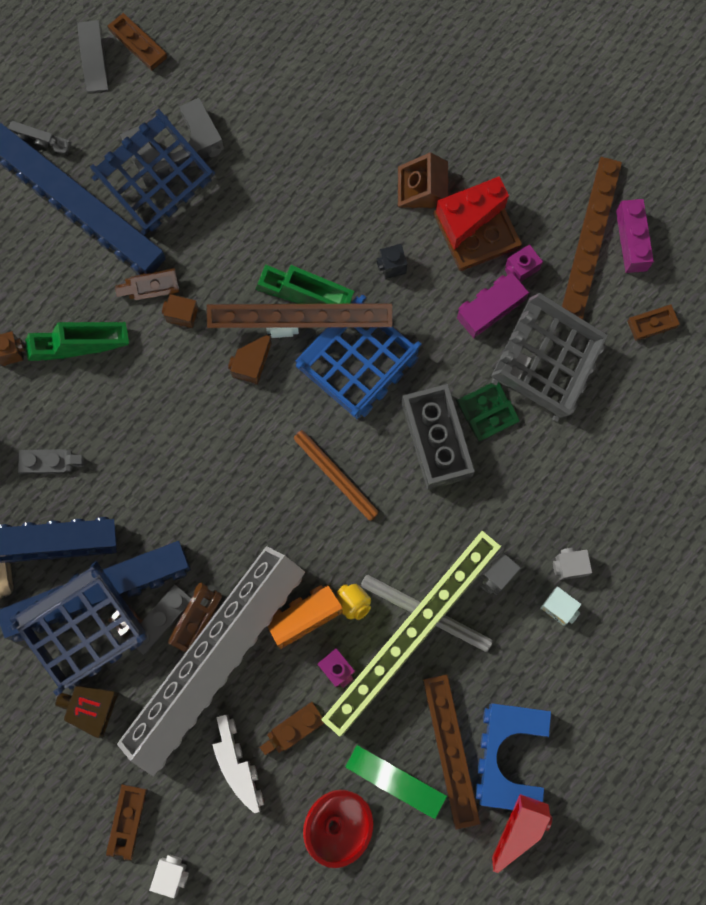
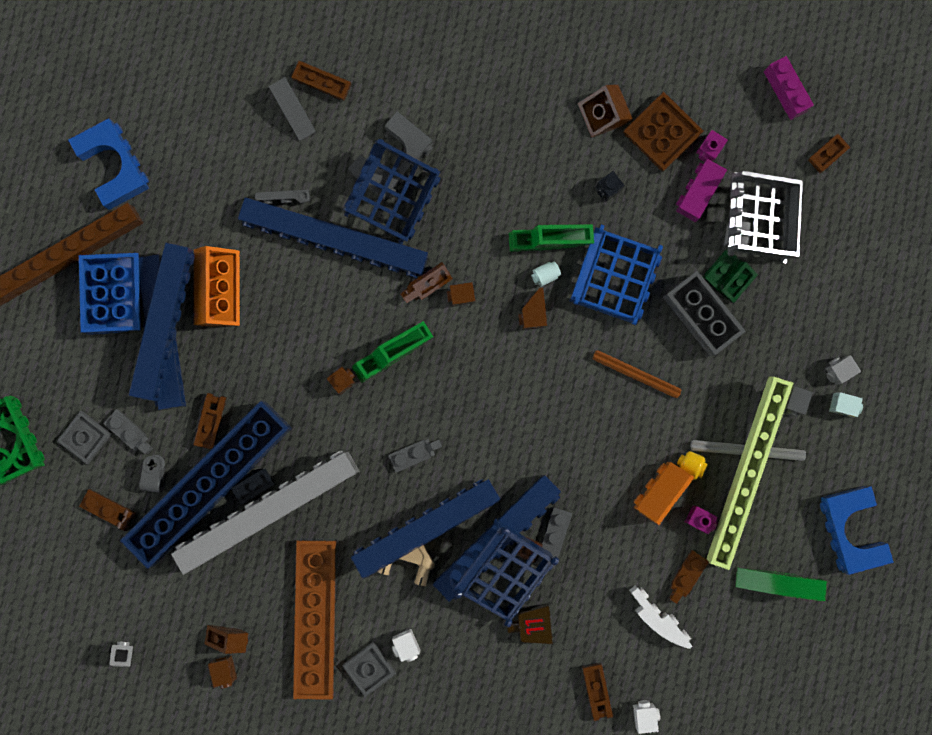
camera: 25 degrees left, 10 degrees up
(195, 617) = (581, 526): reddish brown plate -> none
(210, 660) = (609, 553): light grey brick -> none
(299, 315) = (561, 262): reddish brown plate -> none
(350, 830) = (753, 633): red dish -> none
(451, 752) = (808, 543): reddish brown plate -> none
(470, 209) = (655, 120): red wedge -> none
(522, 831) = (885, 580): slope -> none
(591, 236) = (753, 102): reddish brown plate -> none

